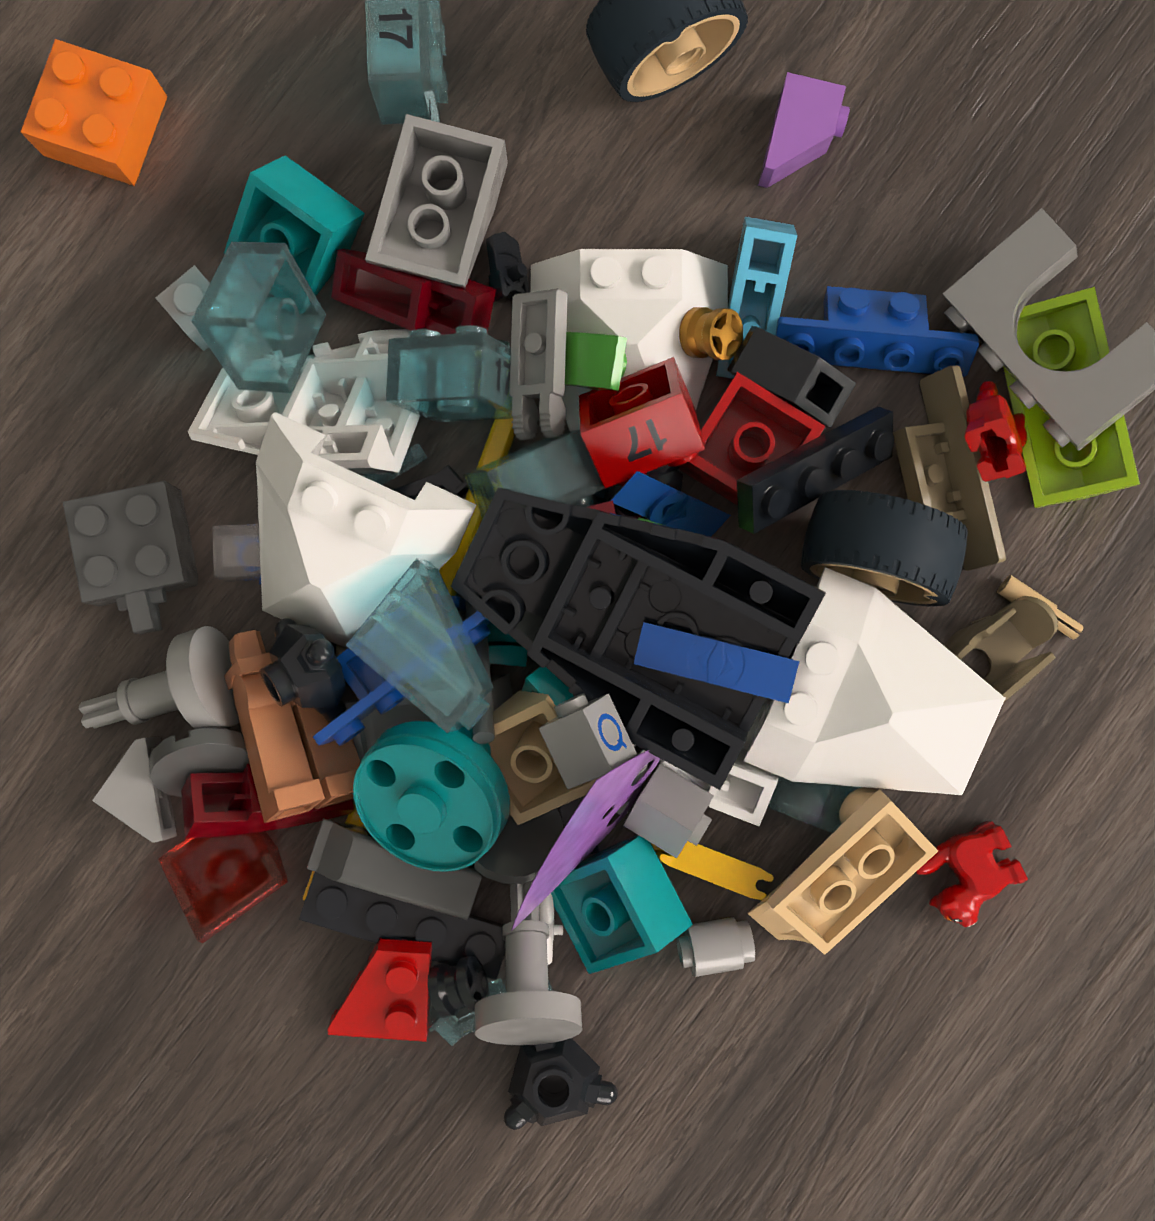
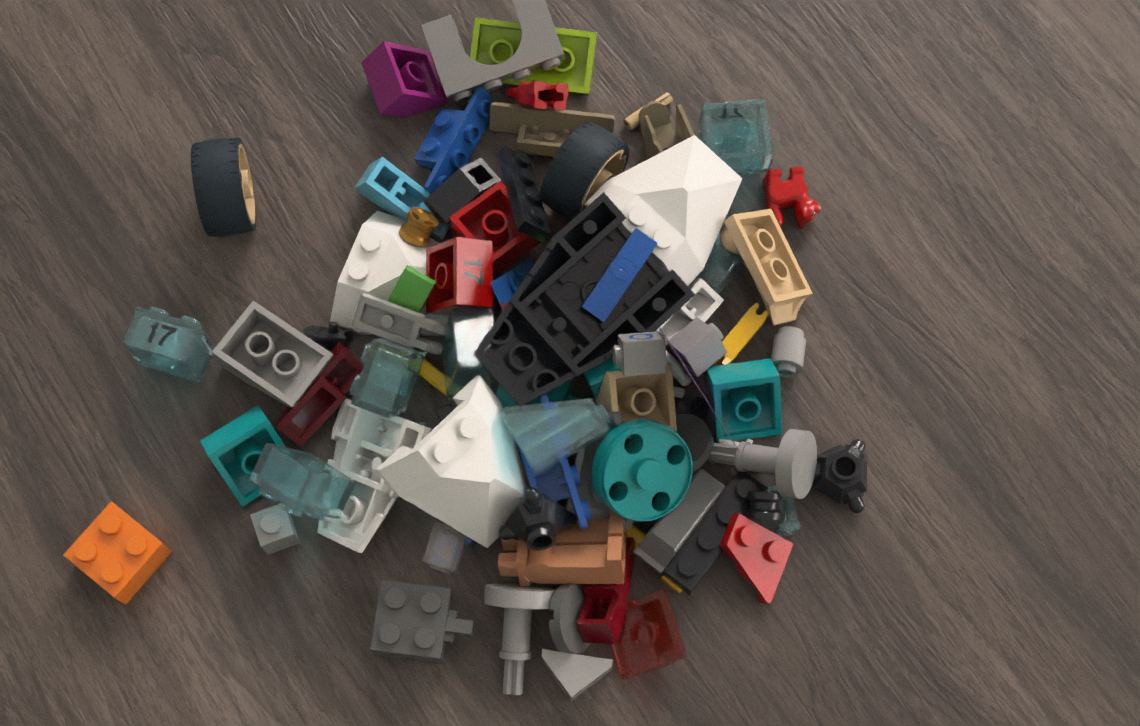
camera: 70 degrees left, 15 degrees down
(803, 125) = (311, 139): medium lavender slope -> none
(948, 218) = (403, 80): none -> magenta slope
(1043, 761) = (738, 134): none -> clear light blue brick

